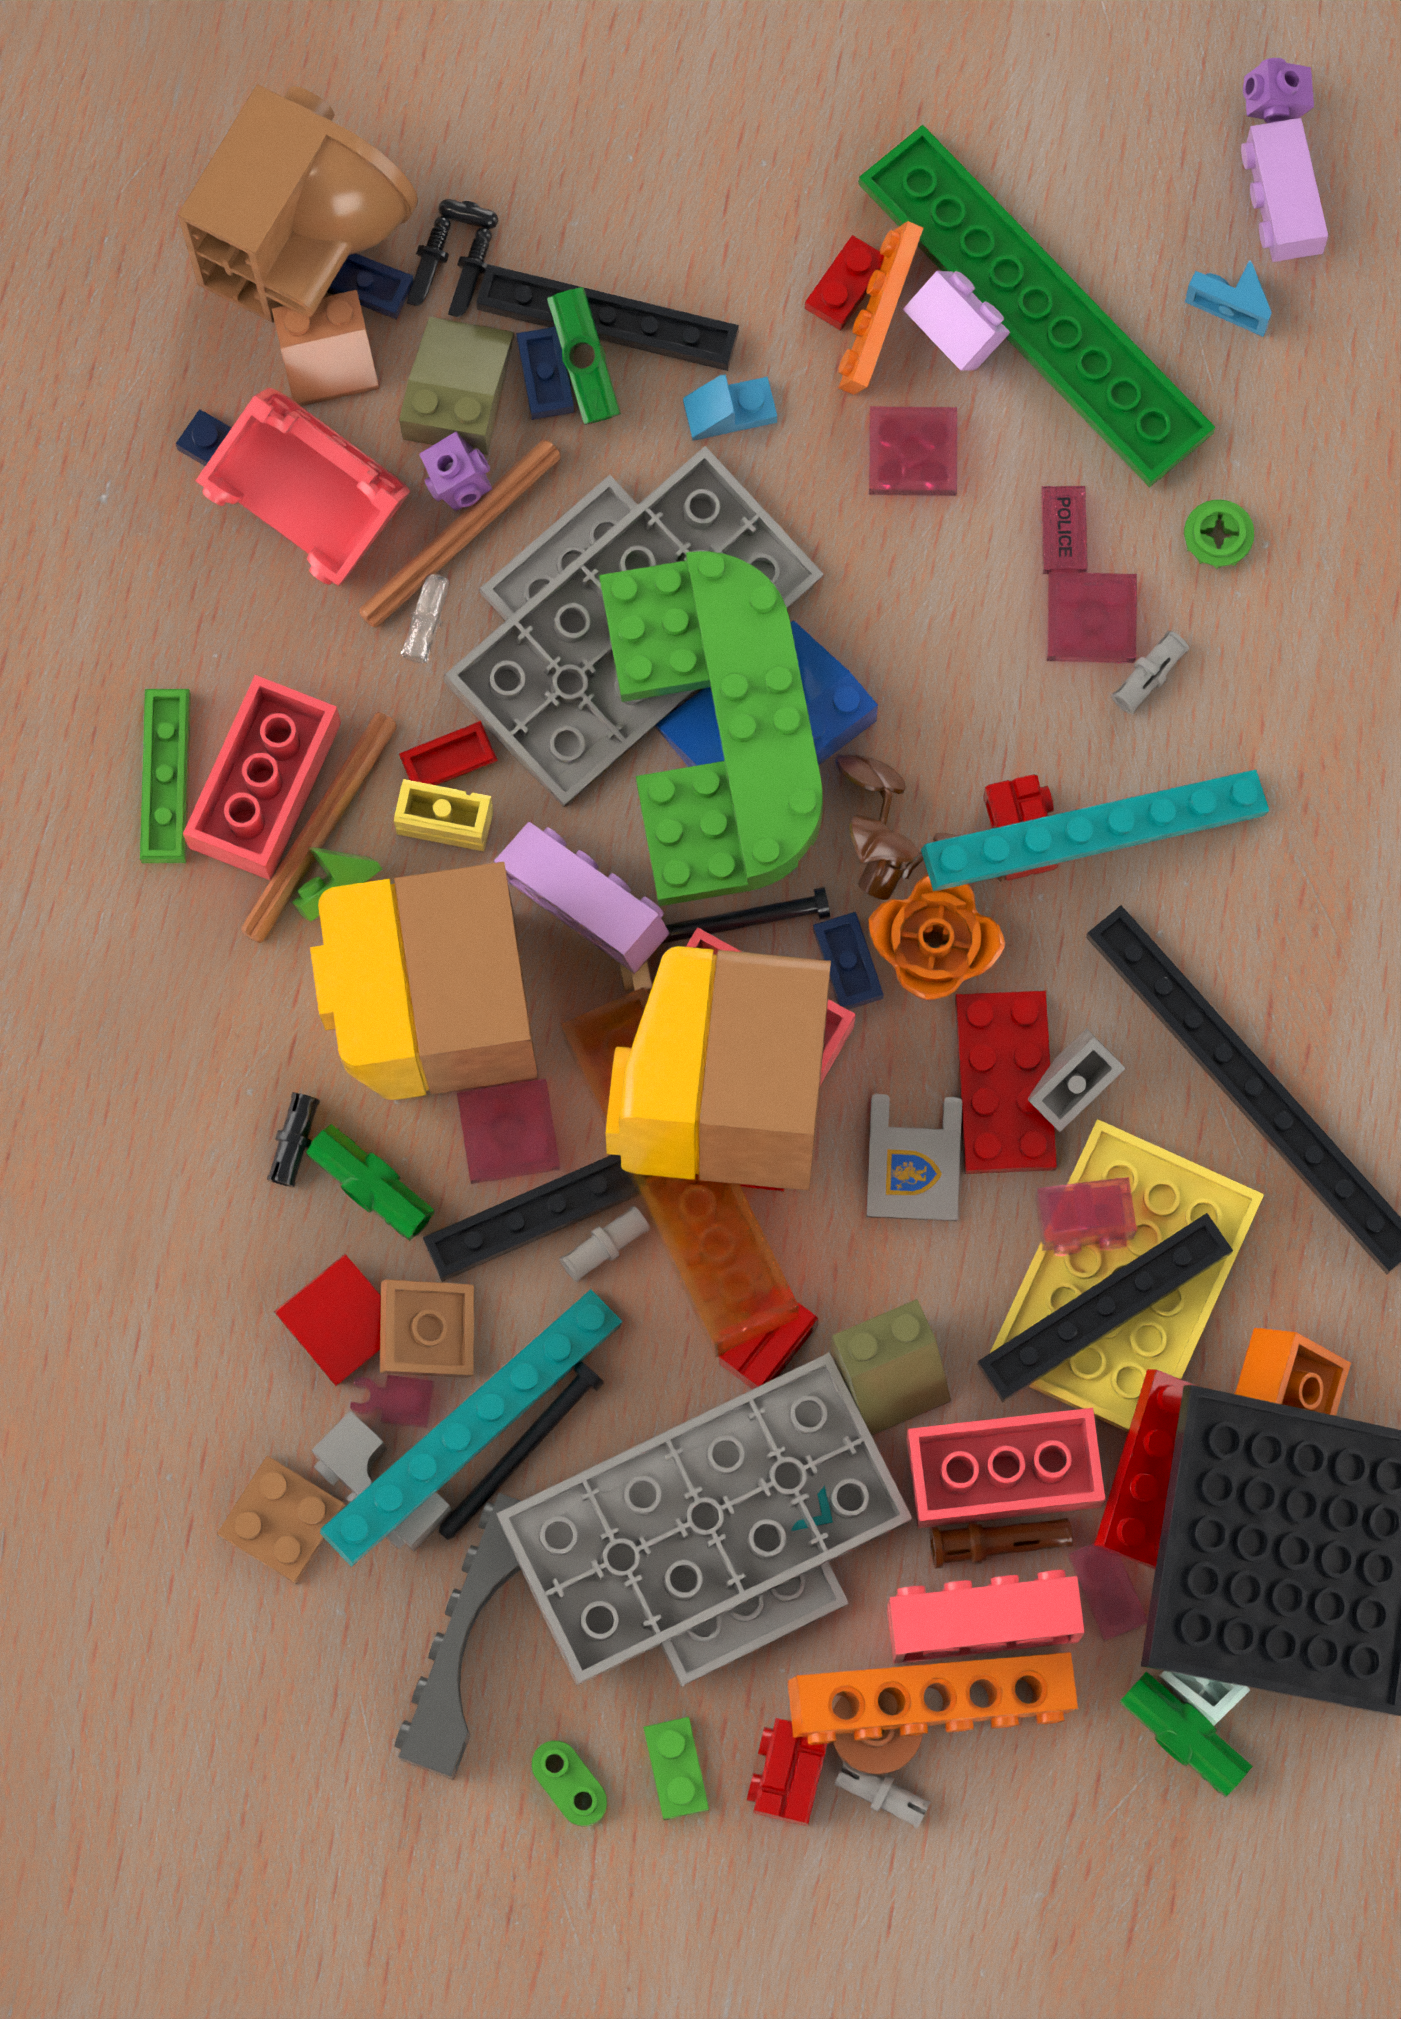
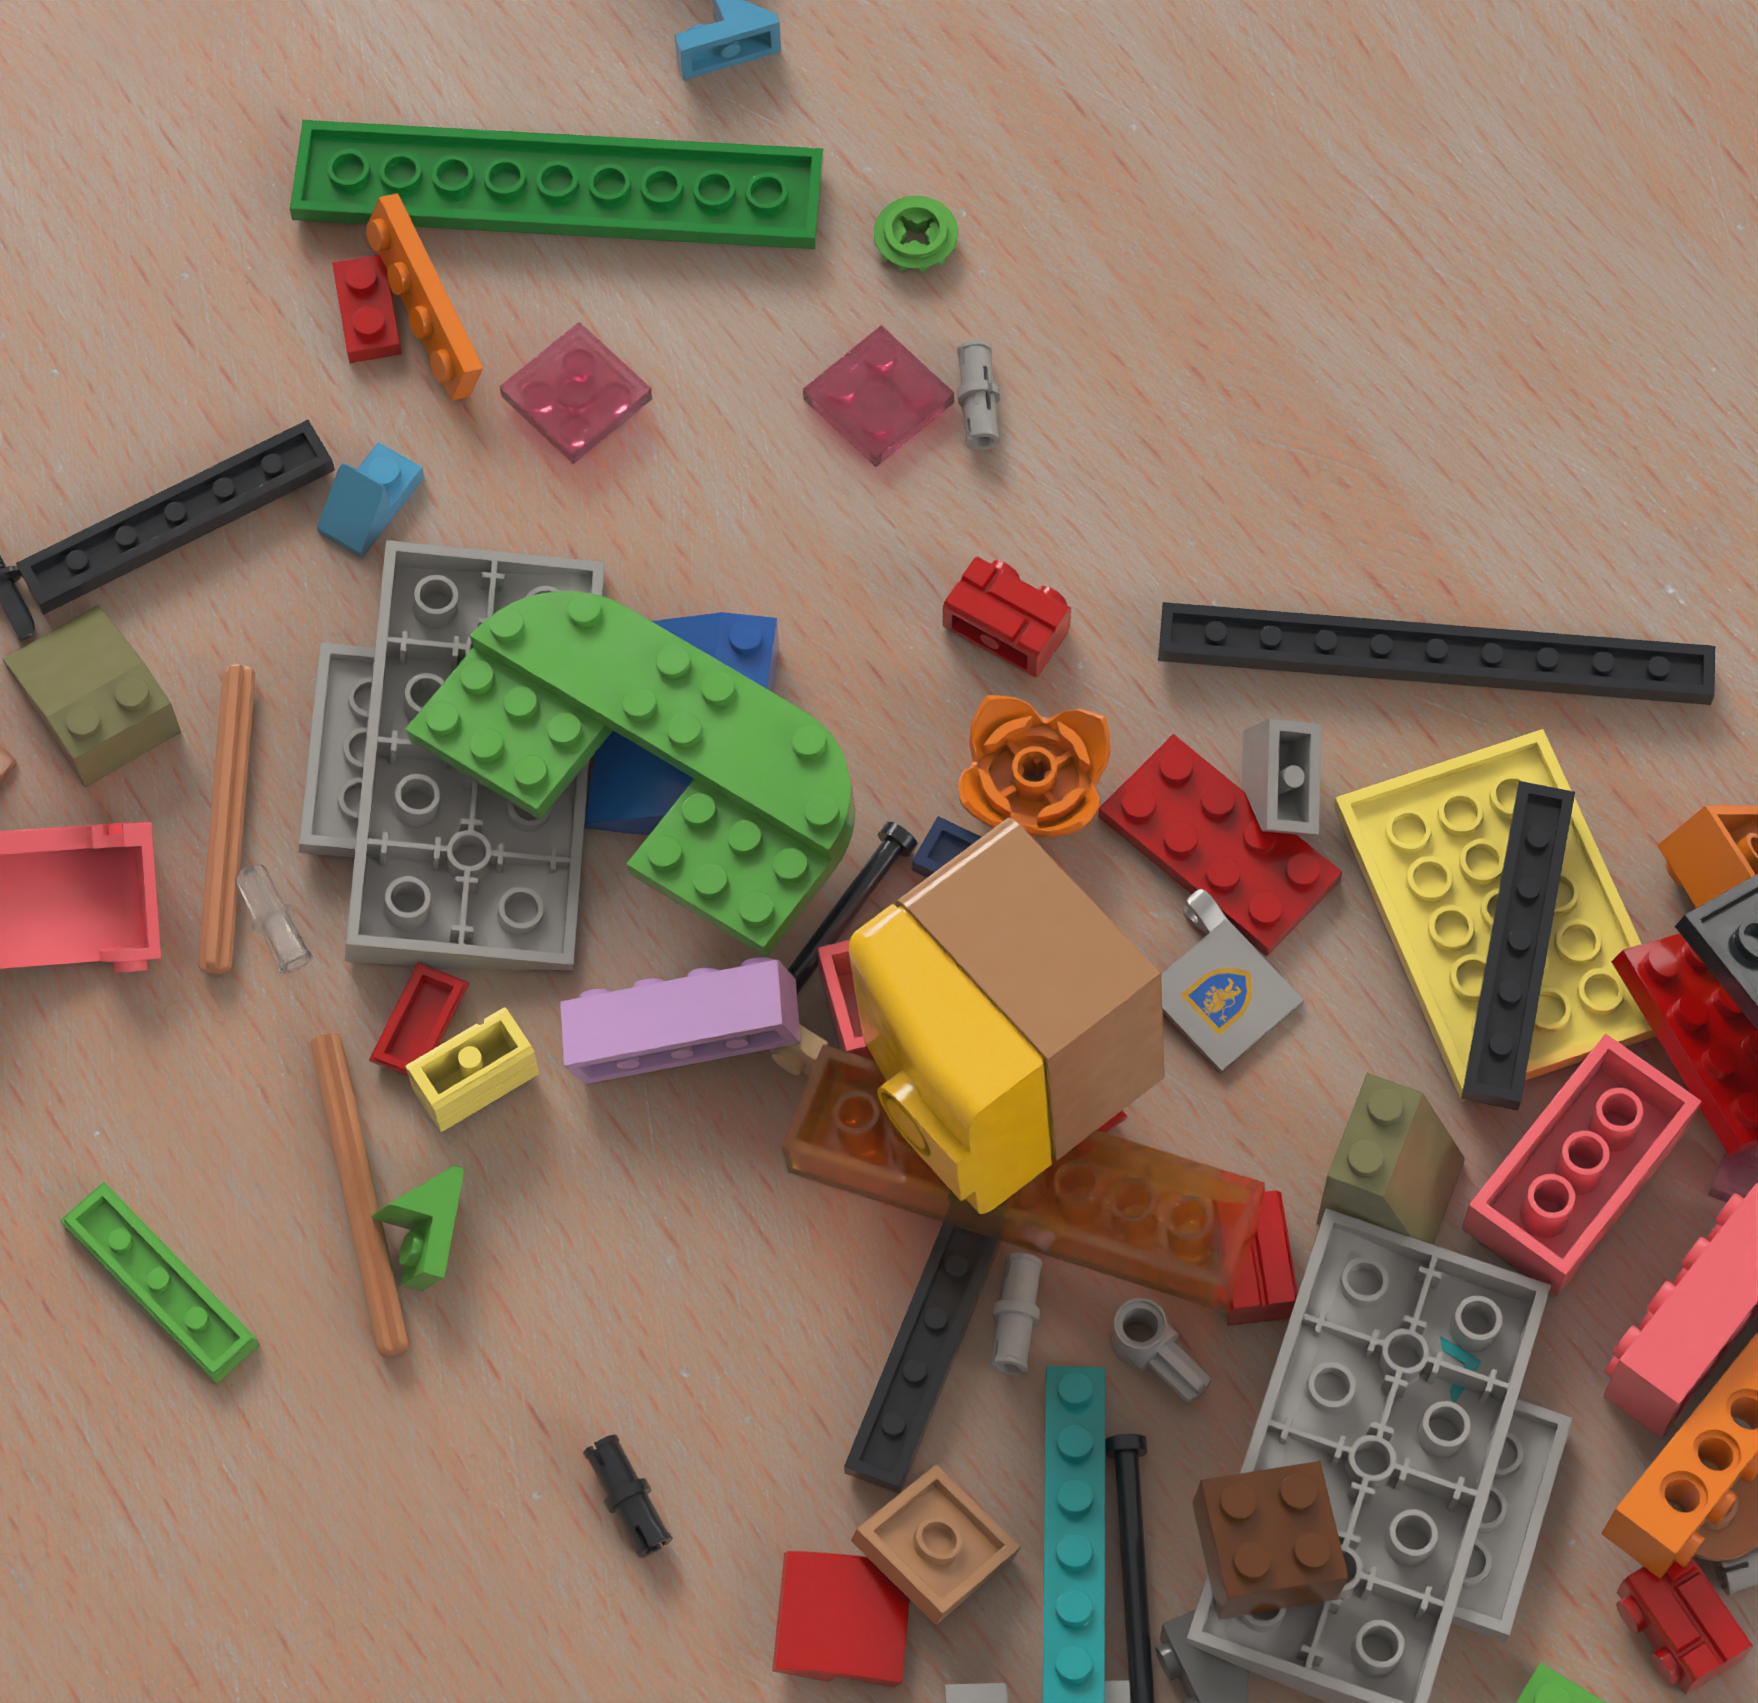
camera: 45 degrees left, 10 degrees down
(262, 777) = (262, 1192): coral brick -> none
(370, 1182) = (741, 1464): green piece -> none
(402, 1401) = (976, 1637): clear pink plate -> none
(425, 982) = (632, 1205): piece -> none
(456, 472) = (172, 763): medium lavender brick -> none
(508, 1131) = (820, 1300): clear pink plate -> none
(545, 373) = (166, 611): dark blue plate -> none
(576, 328) = (162, 540): green piece -> none
(590, 1504) = (1269, 1539): none -> reddish brown brick
(659, 1343) = (1160, 1352): none -> light grey axle
(872, 838) = (924, 752): reddish brown plant -> none
(957, 319) = (504, 248): lavender brick -> none
(978, 1542) = (1624, 1255): reddish brown pin -> none
(1064, 529) = (777, 344): clear pink tile -> none
(1085, 1215) = (1418, 880): clear pink brick -> none
(1094, 830) = (1075, 559): teal plate -> none

